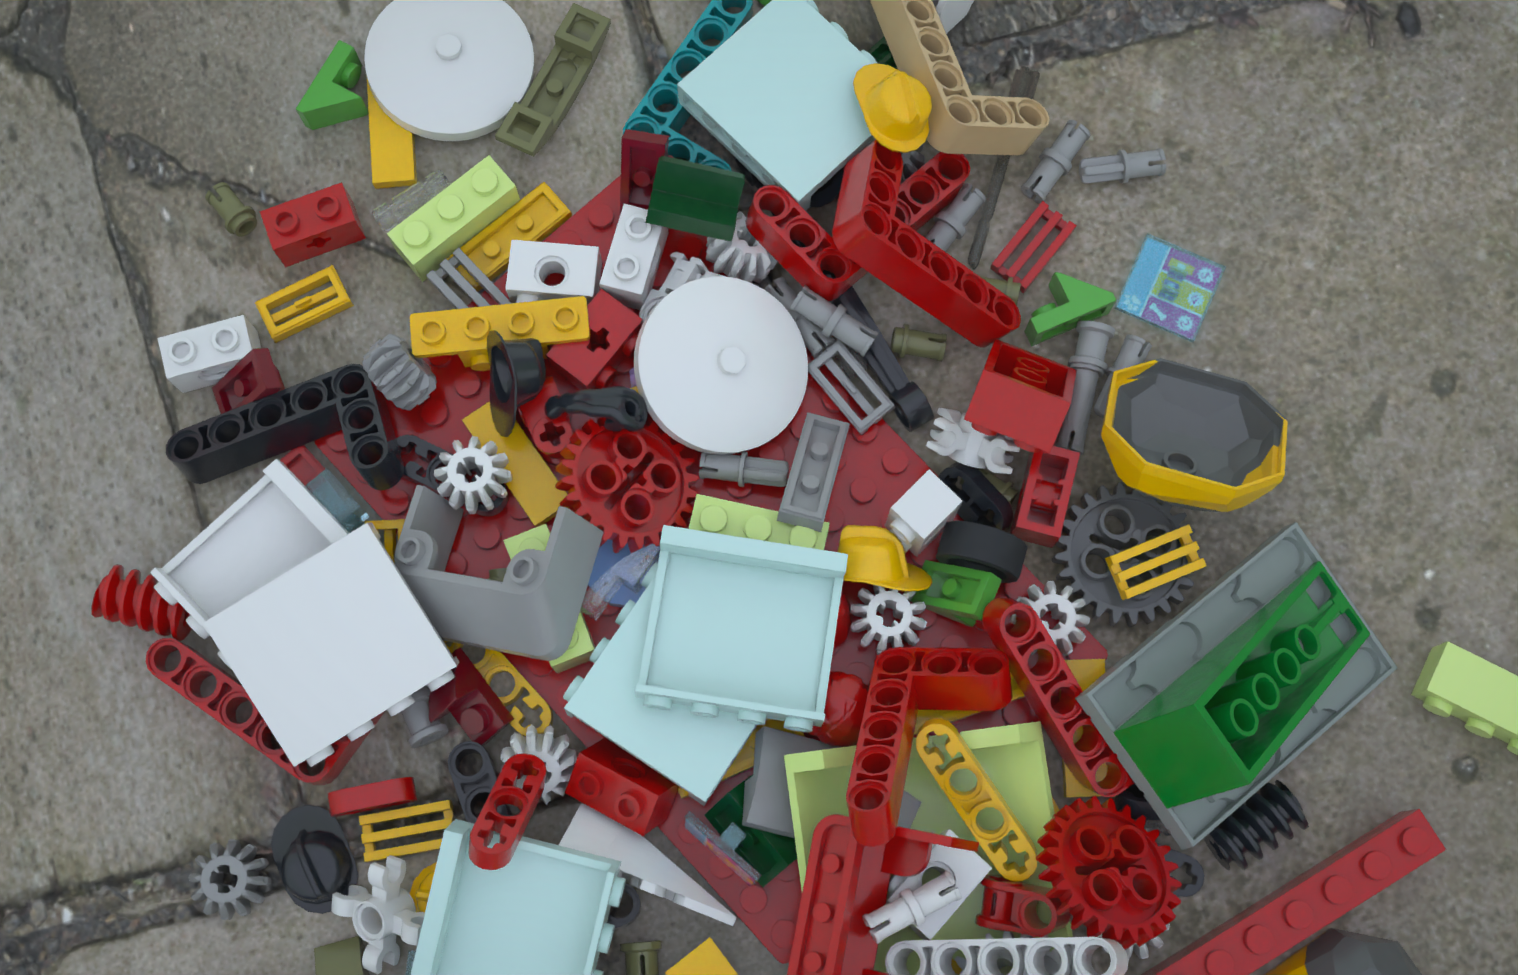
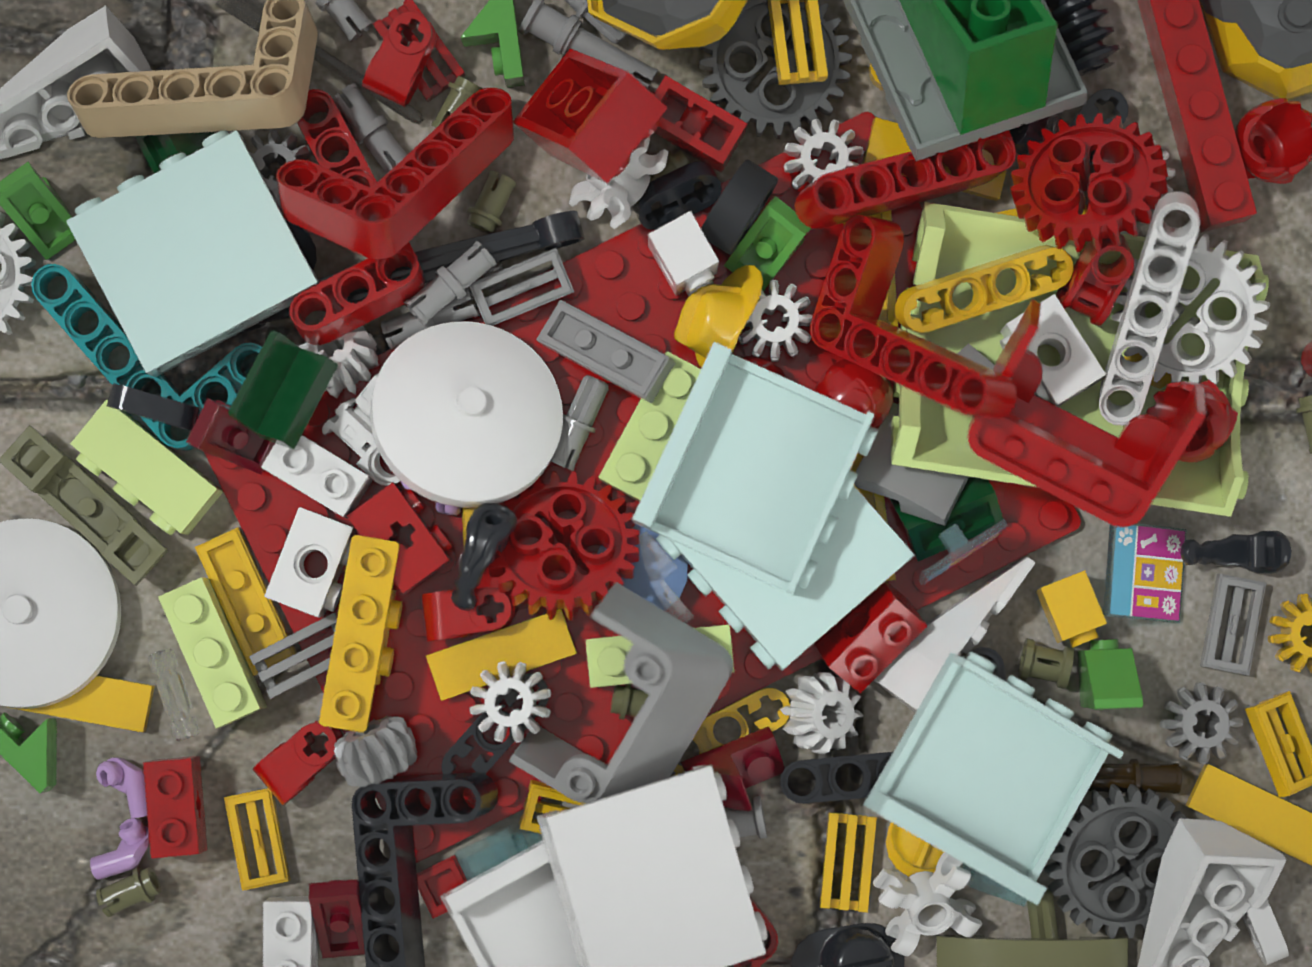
camera: 75 degrees left, 10 degrees up
(259, 197) = (128, 854): none -> lavender arm
(331, 173) = (127, 779): none -> lavender arm
(372, 796) = (805, 889): red beam -> none
(375, 313) = (294, 762): none -> red piece
(509, 827) = (890, 750): red beam -> none
(515, 377) = (422, 634): black piece -> none
(596, 122) = (145, 470): none -> yellowish green brick
(651, 98) = (153, 407): none -> black beam
(893, 106) = (242, 152): yellow piece -> none
(912, 907) = (1072, 382): white pin -> none
(1015, 228) = (398, 68): none -> red piece

